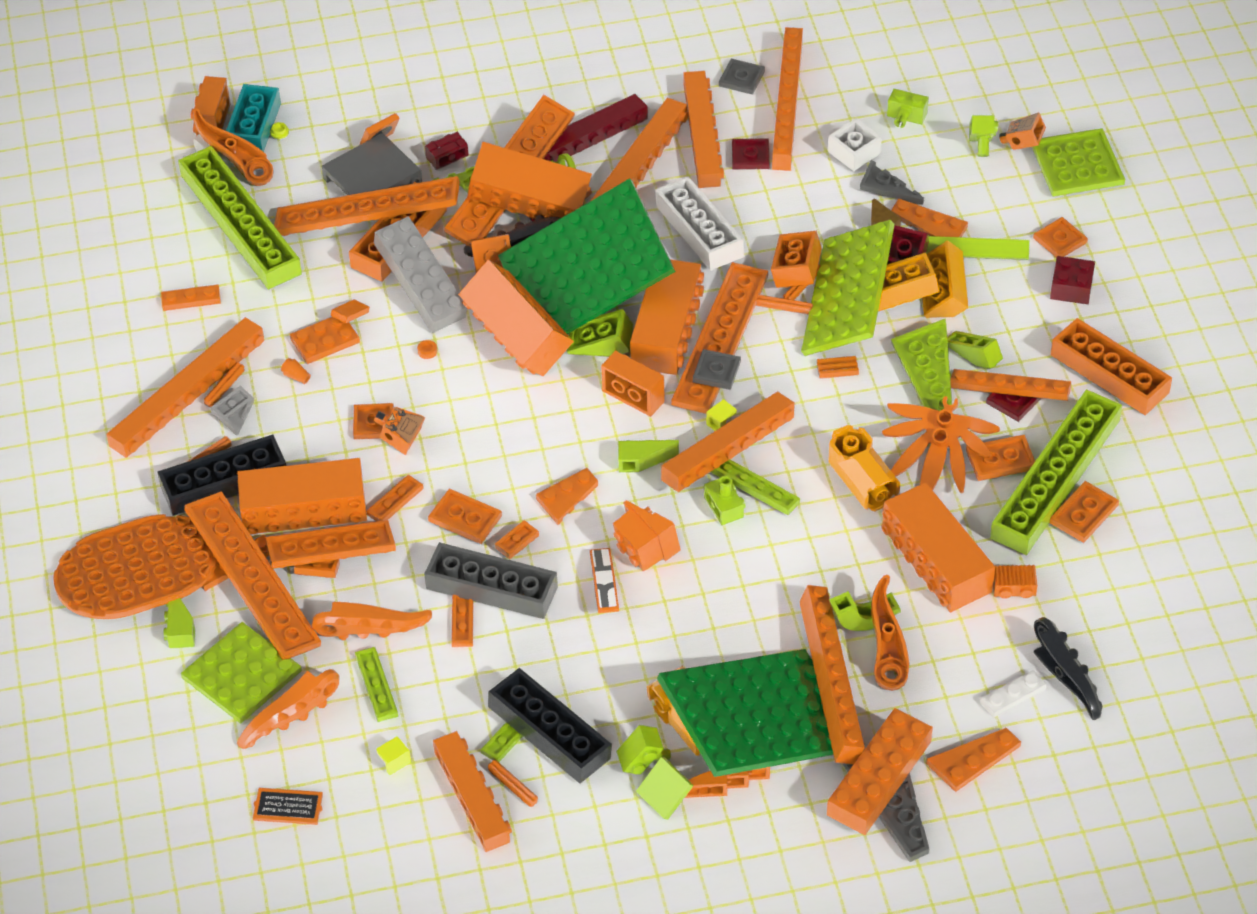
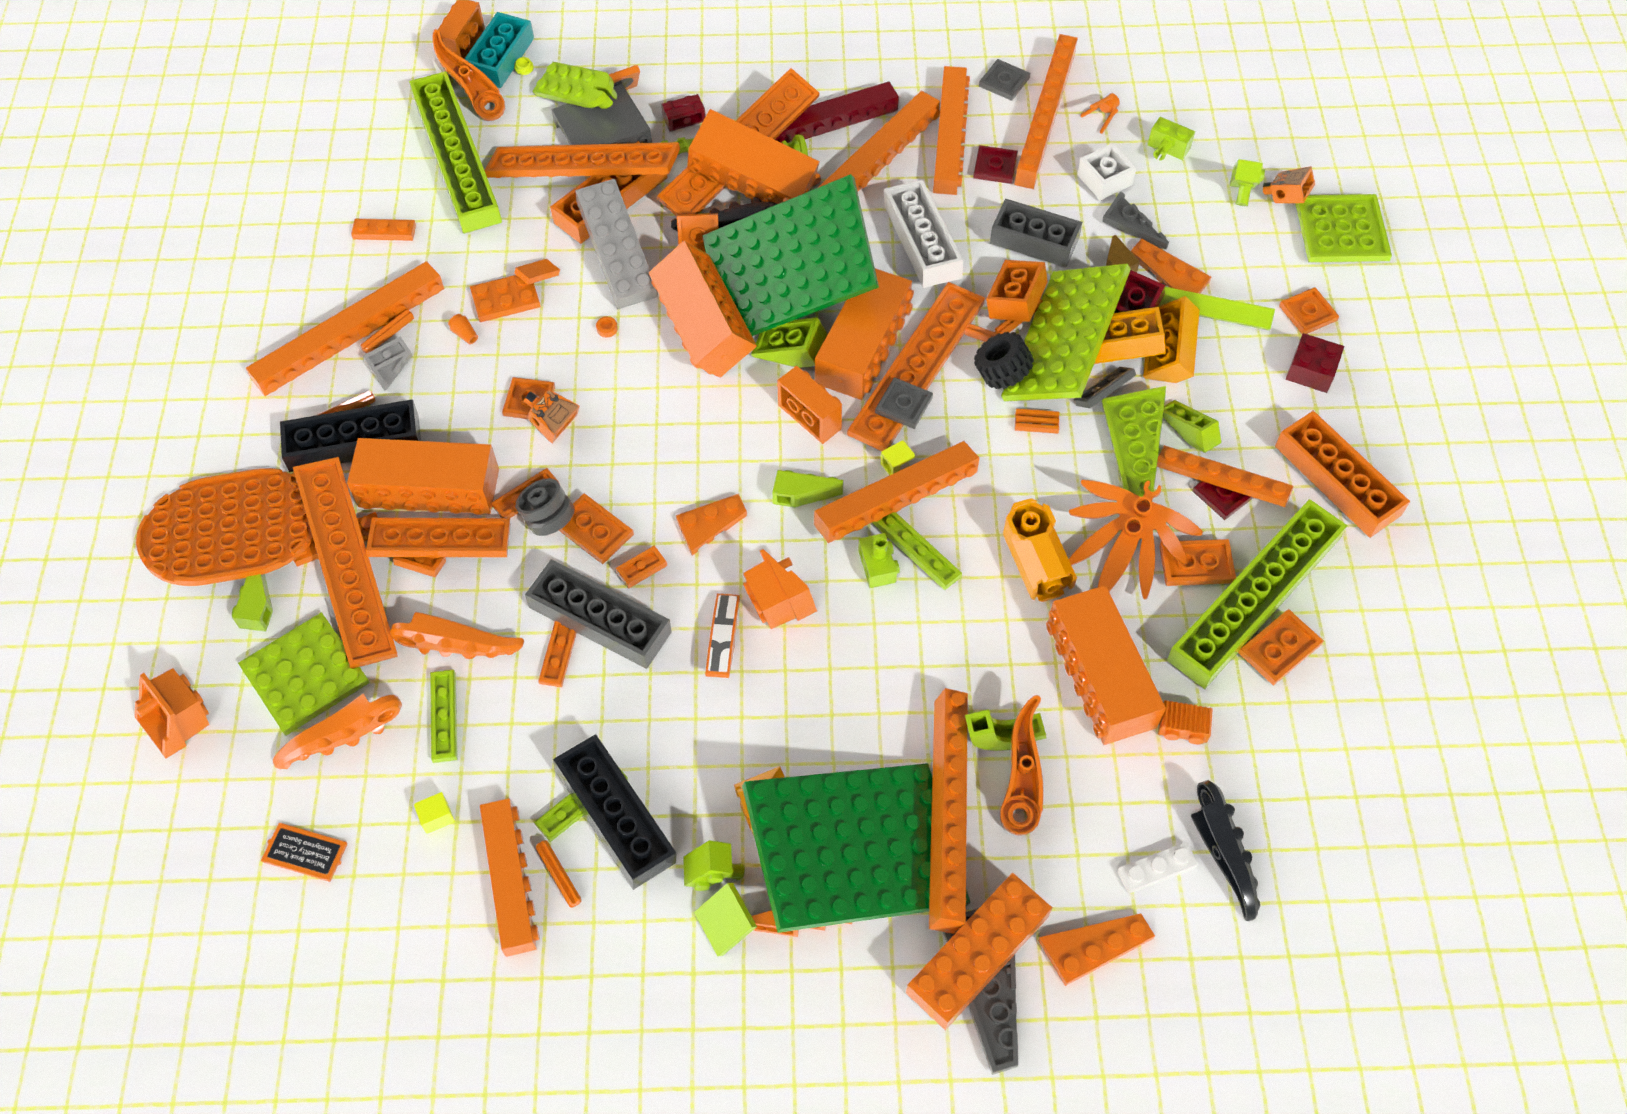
camera: 10 degrees right, 10 degrees up
(136, 716) = (169, 711): none -> orange piece
(340, 141) = (576, 86): none -> lime plate
(419, 503) = (545, 507): none -> dark grey wheel
(797, 319) = (1003, 360): none -> black tyre
(801, 207) = (1035, 232): none -> dark grey brick
(842, 85) = (1107, 105): none -> orange plant
(889, 331) = (1105, 387): none -> dark grey tile

